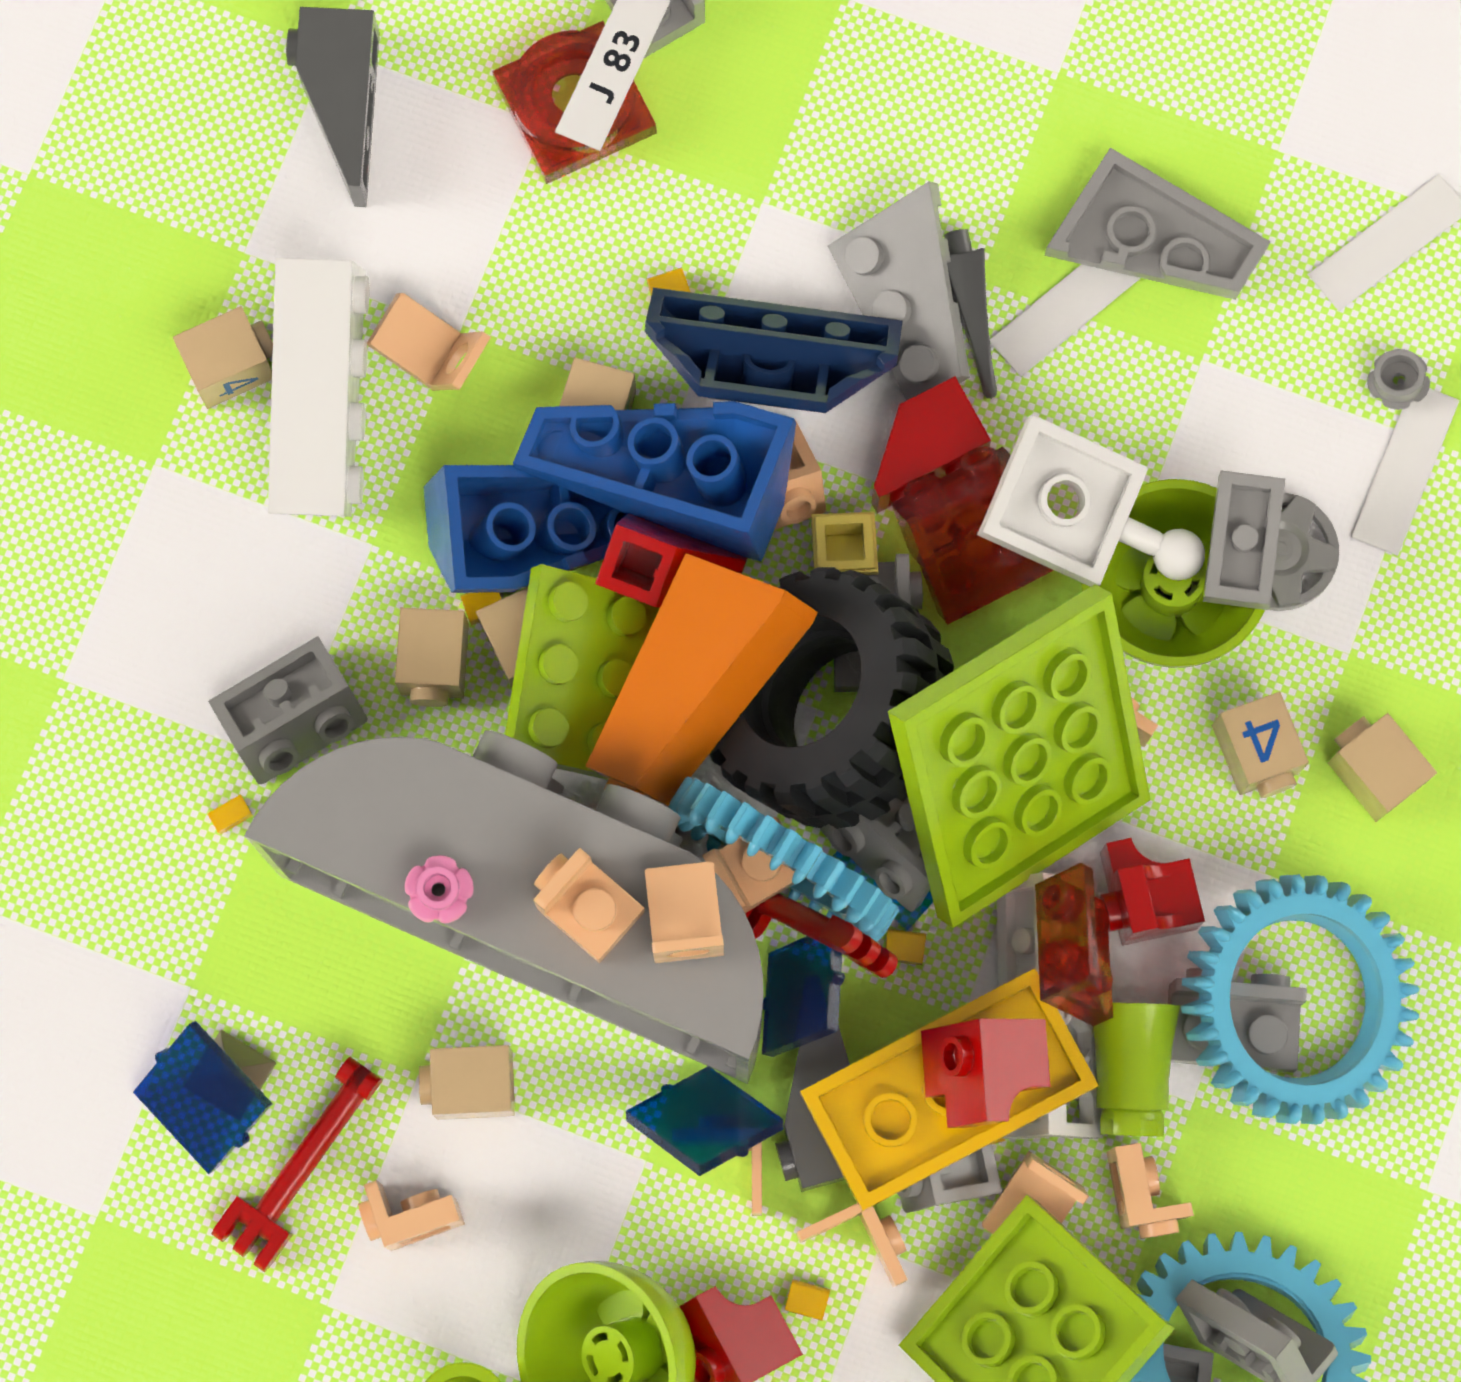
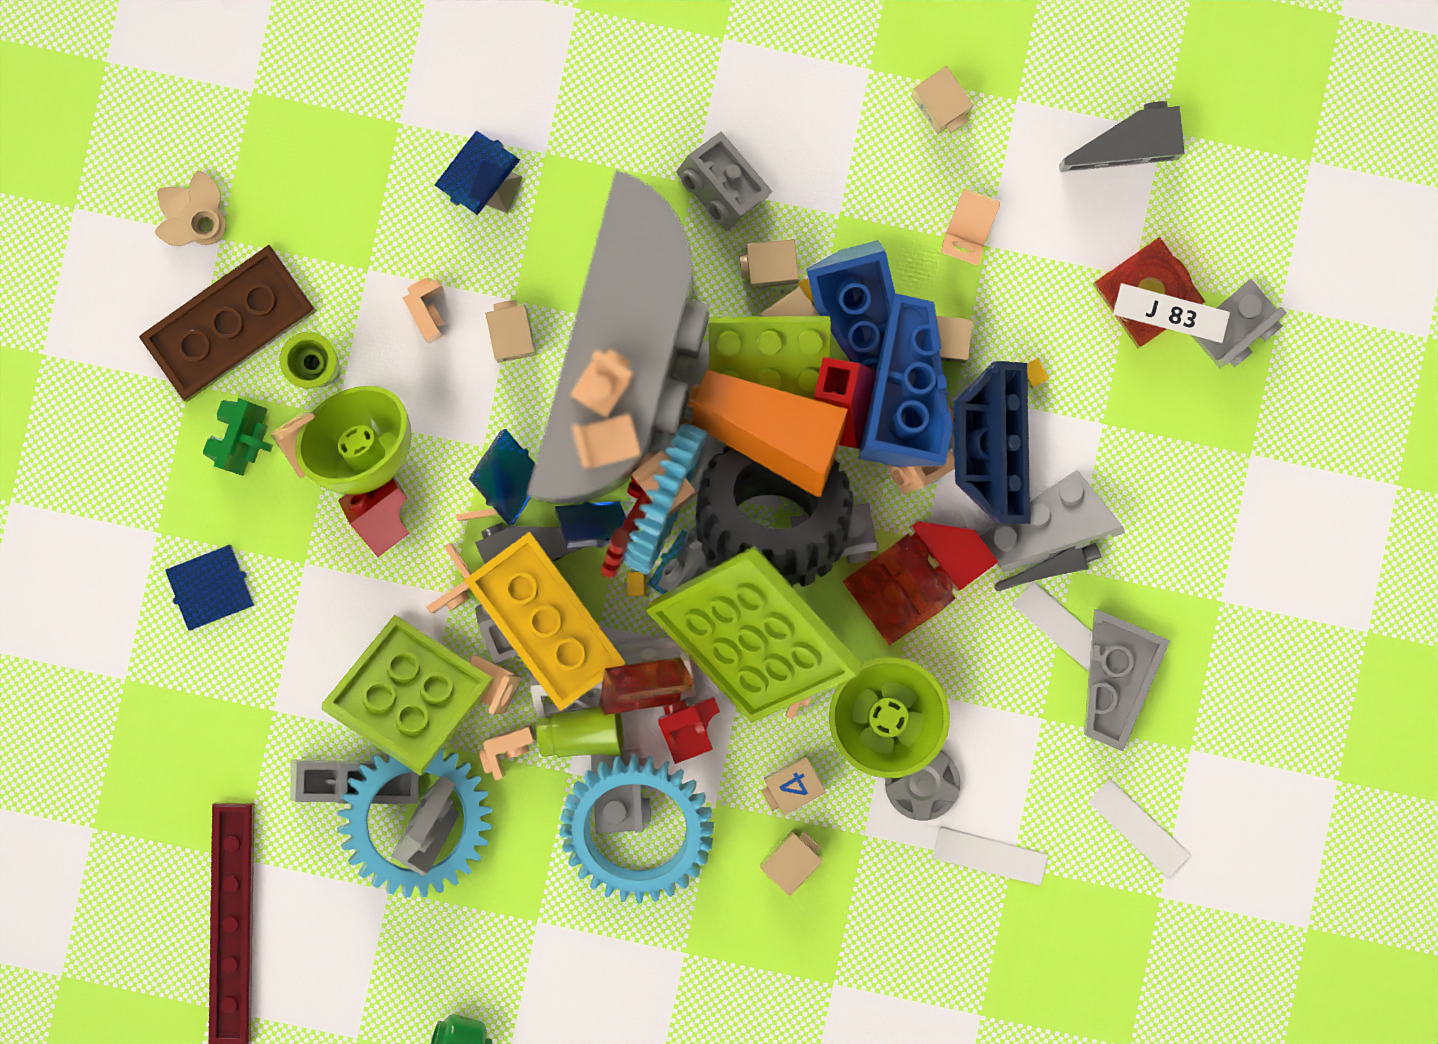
camera: 80 degrees right, 10 degrees up
(230, 814) = (654, 157): yellow piece -> none
(261, 1220) = (500, 265): red hinge -> none
(317, 386) = (930, 162): white wedge -> none
(442, 908) = (609, 289): bright pink plate -> none
(807, 1299) = (414, 556): yellow piece -> none
(845, 541) = (880, 509): light yellow slope -> none
(984, 1067) = (555, 639): brick -> none
(1105, 492) = (929, 666): white plate -> none
(1244, 540) = (912, 756): light grey plate -> none
(1404, 364) = (1056, 844): light grey plate -> none

